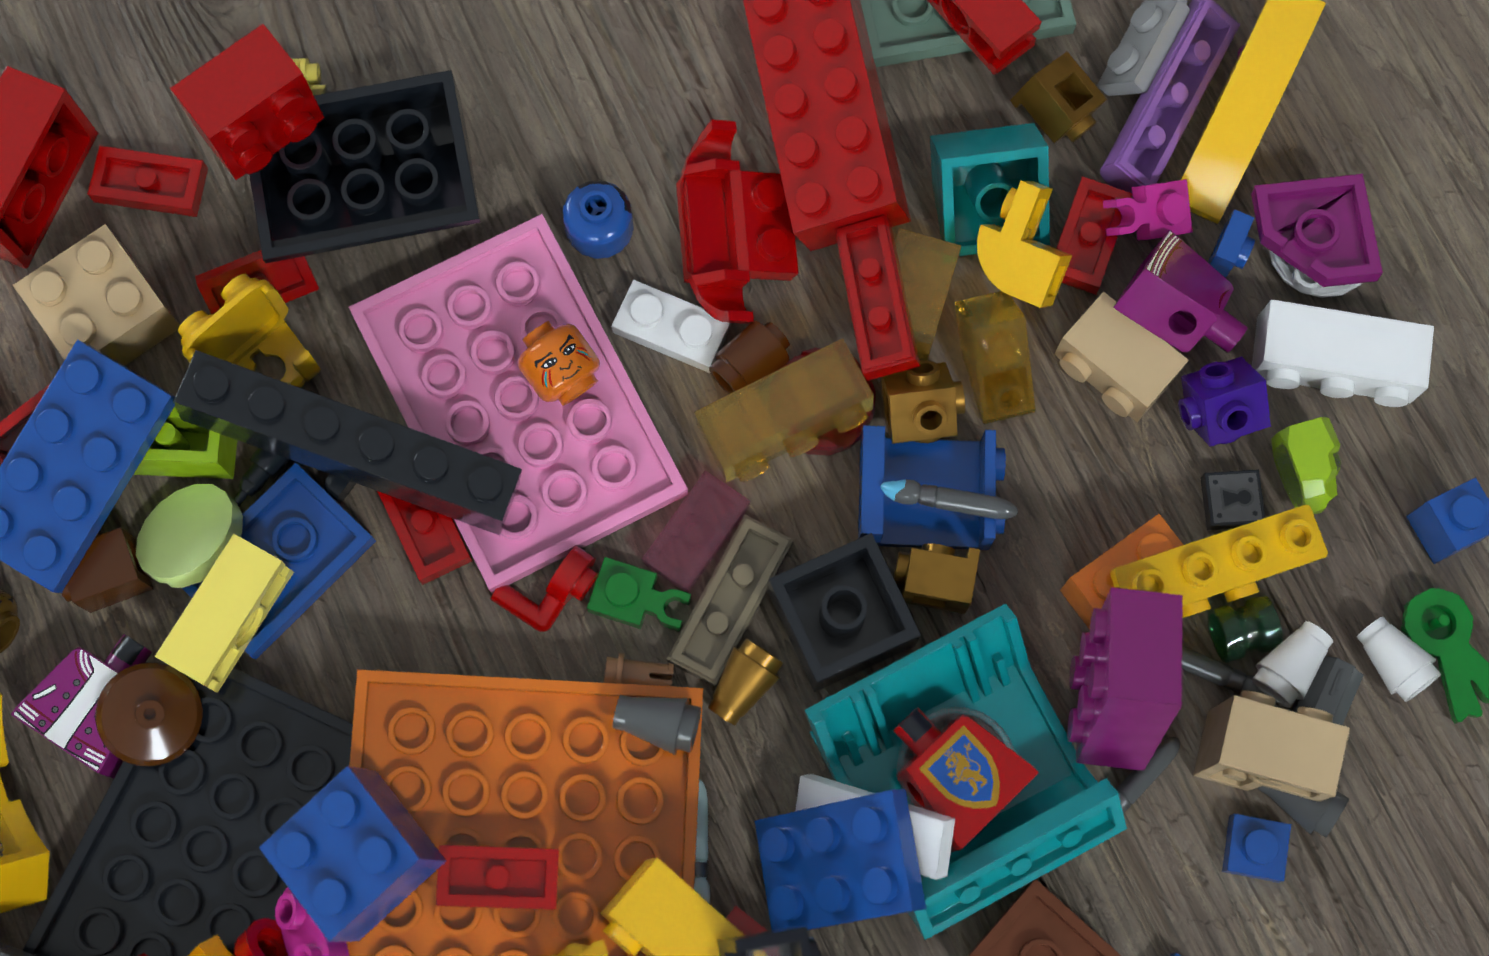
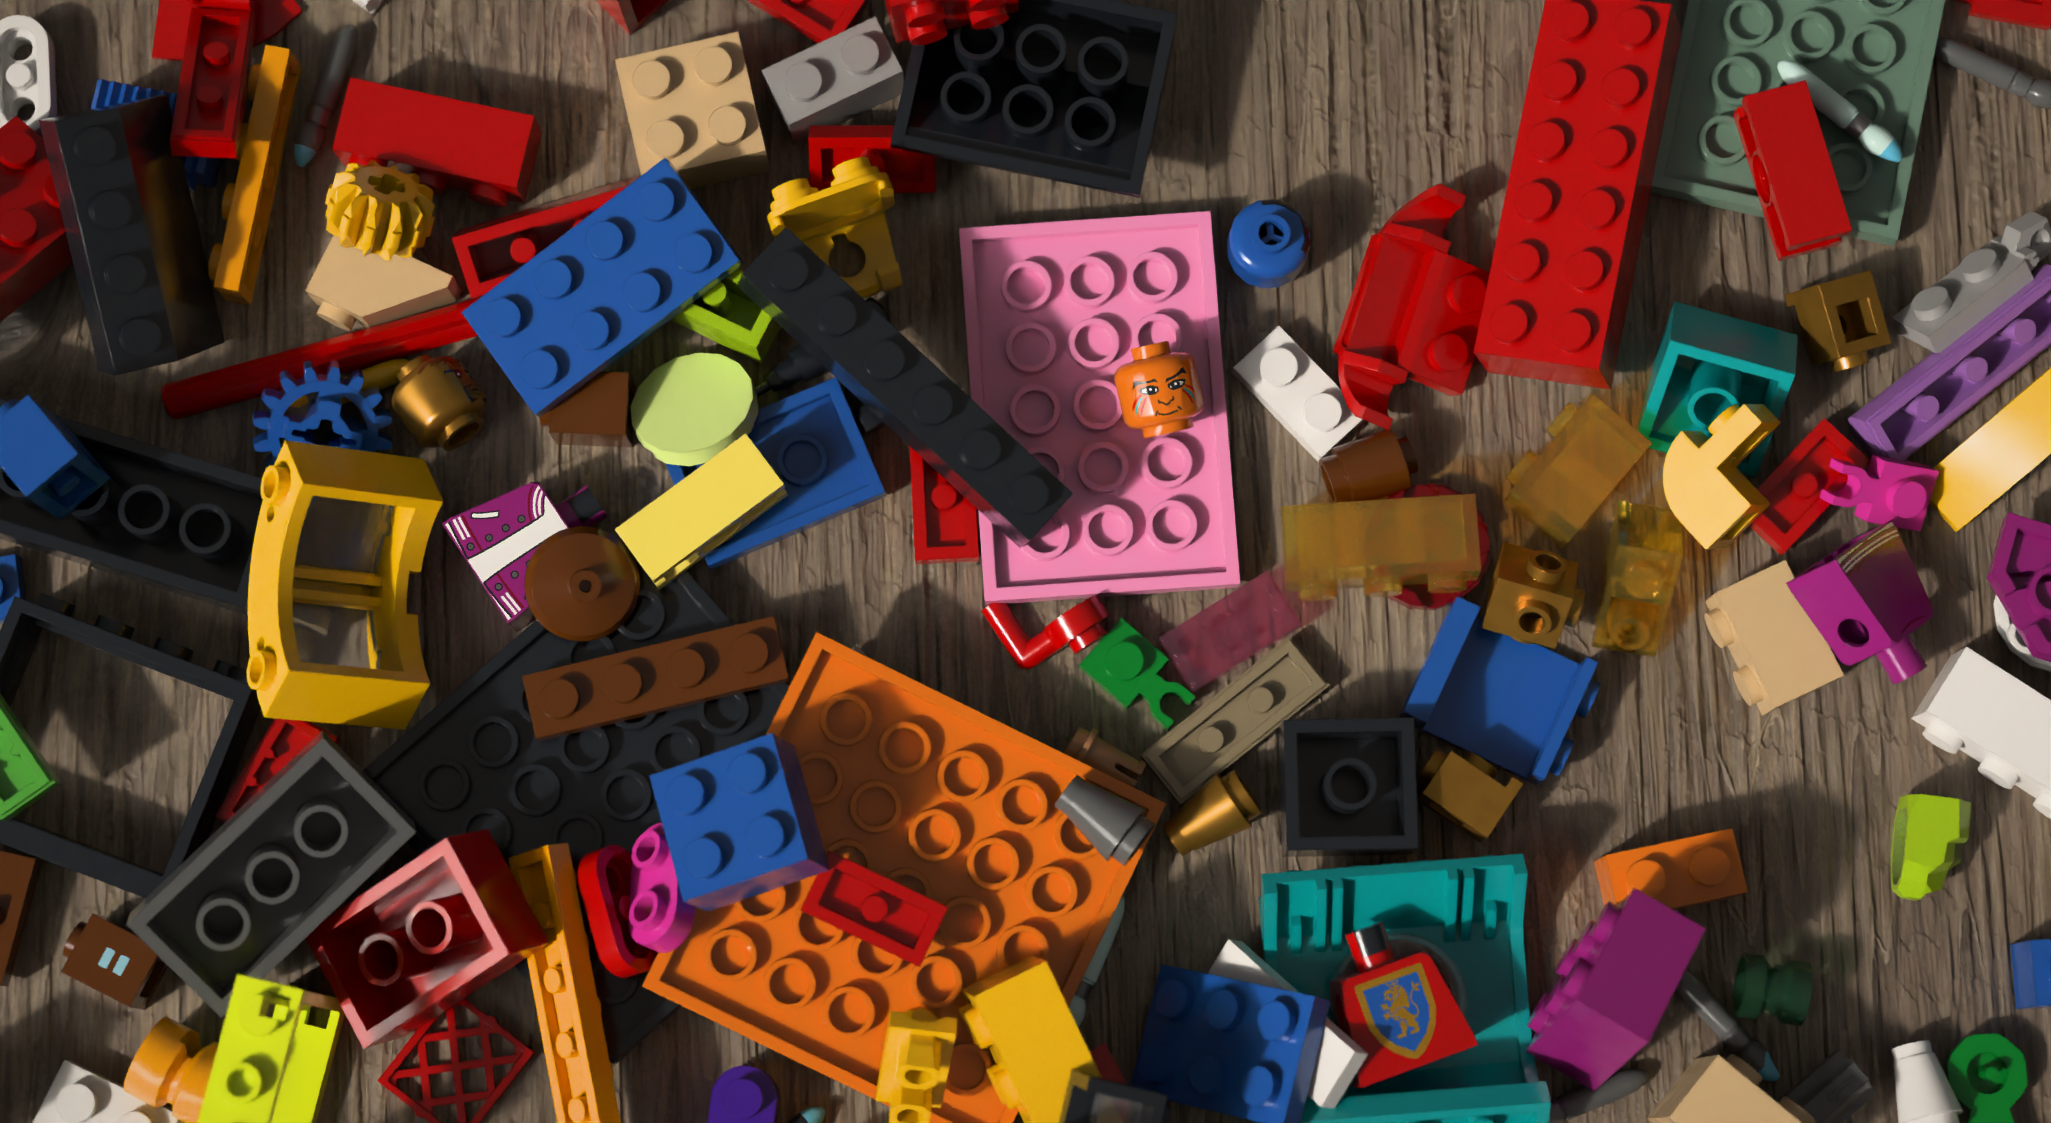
camera: 25 degrees right, 5 degrees up
(200, 232) = (834, 79): none -> light grey brick
(240, 767) = (655, 678): none -> reddish brown plate
(877, 297) = (1533, 462): red tile -> none
(955, 500) = (1477, 691): dark grey piece -> none
(1224, 401) = (1863, 736): dark purple brick -> none
(1228, 560) = (1780, 910): yellow bracket -> none
(1232, 498) = (1826, 845): tile -> none
(1233, 244) = (1956, 566): blue plate -> none
(1293, 664) = (1804, 1049): white cone -> none

